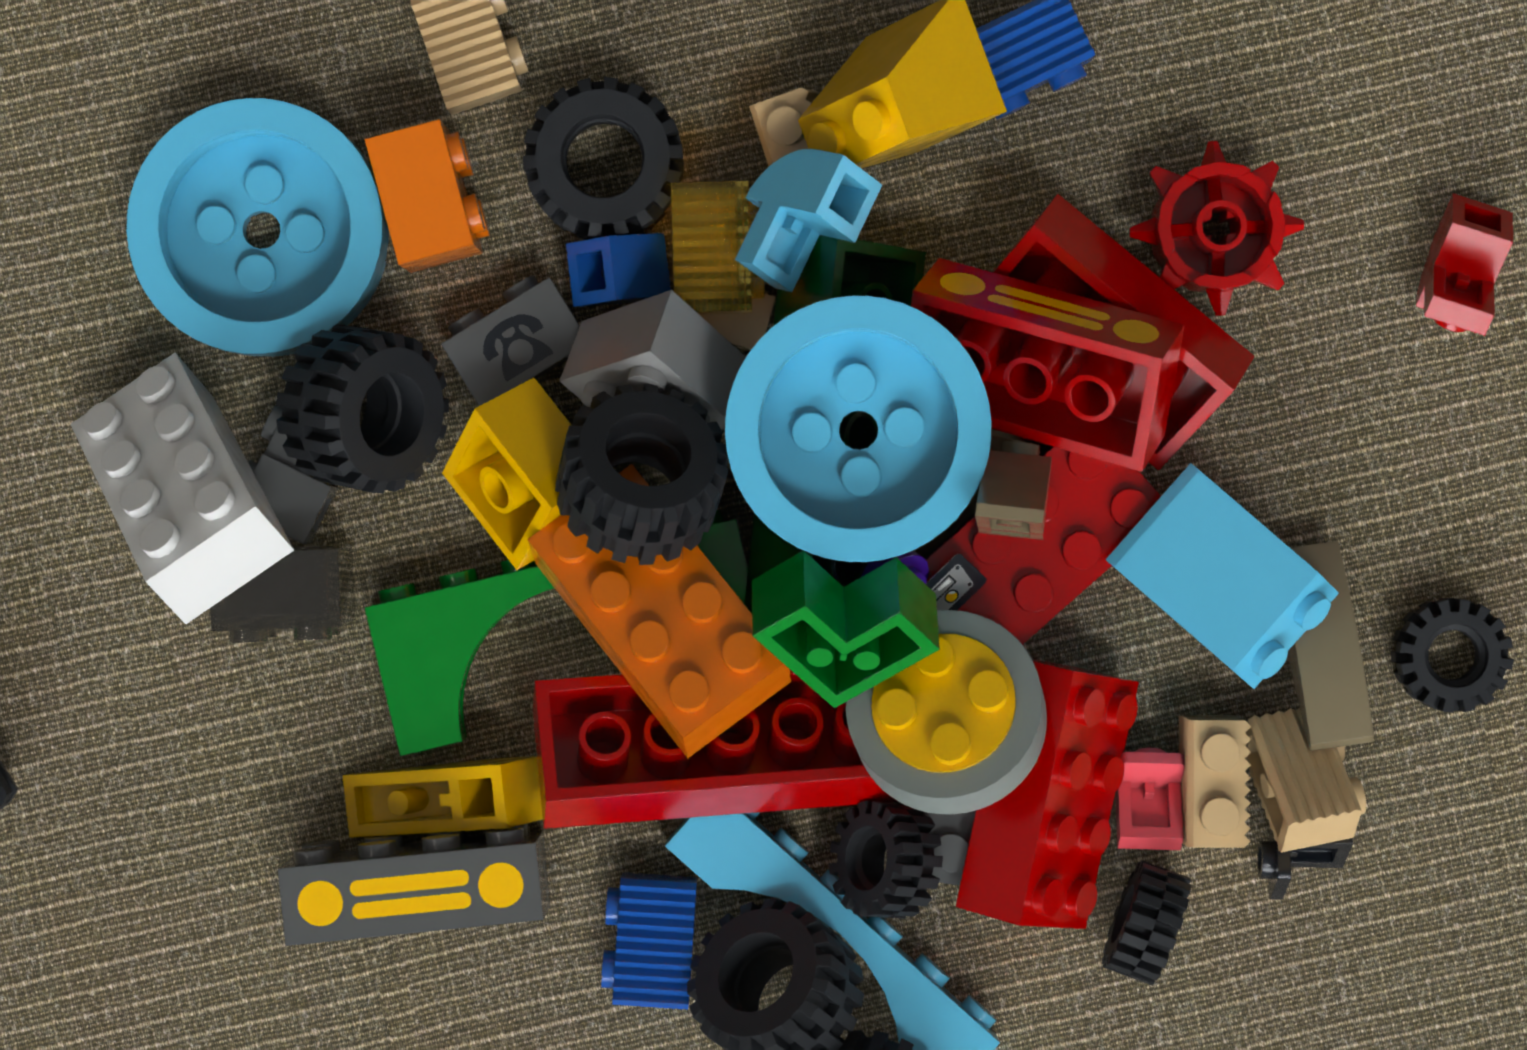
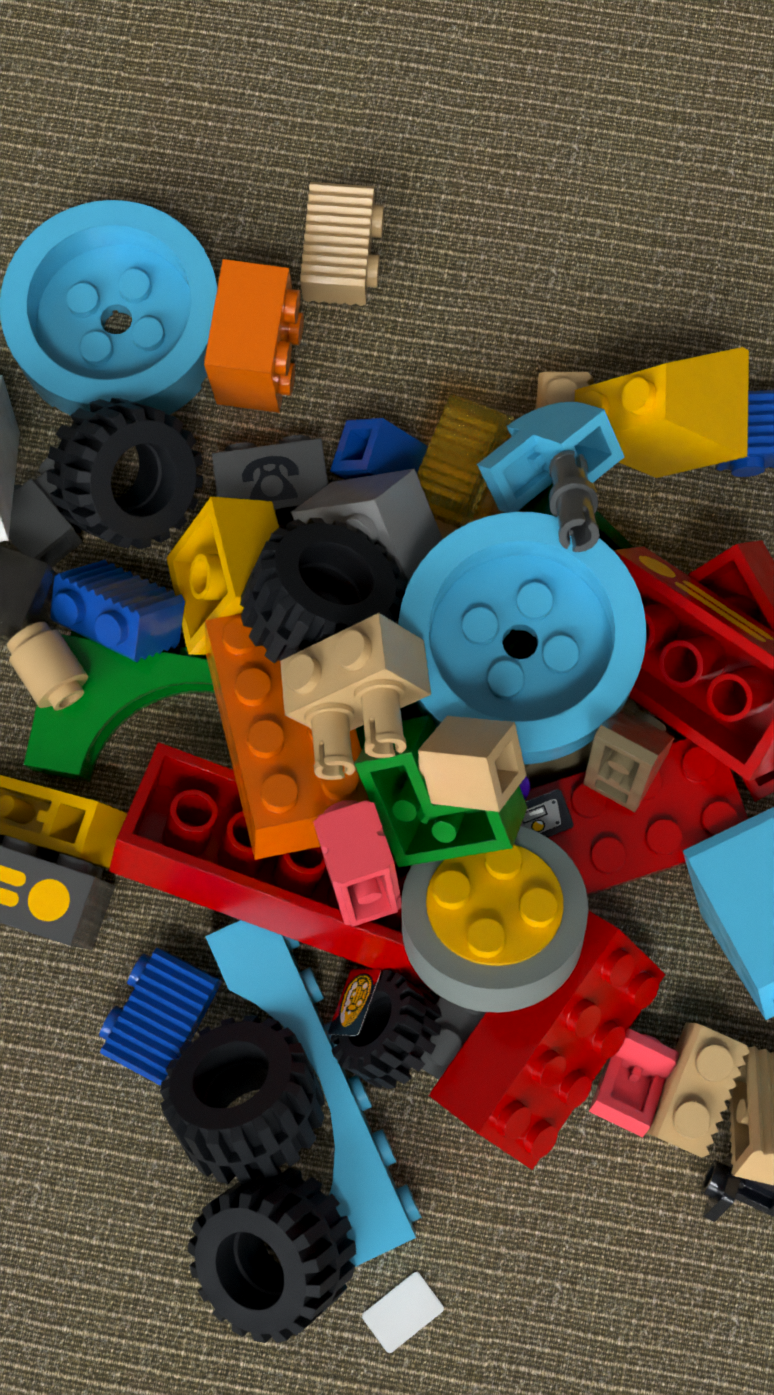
camera: 35 degrees right, 10 degrees down
(381, 649) = (47, 666): none -> tan brick
(421, 555) = (117, 610): none -> blue brick
(594, 105) = (397, 331): black tyre -> none
(713, 556) = (355, 682): none -> tan brick
(794, 723) = (358, 861): none -> coral brick
(842, 846) = (354, 1002): none -> sticker
(854, 274) = (573, 501): none -> dark grey pin
(868, 590) = (472, 763): none -> tan brick
(1146, 922) = (588, 1188): black tyre -> none

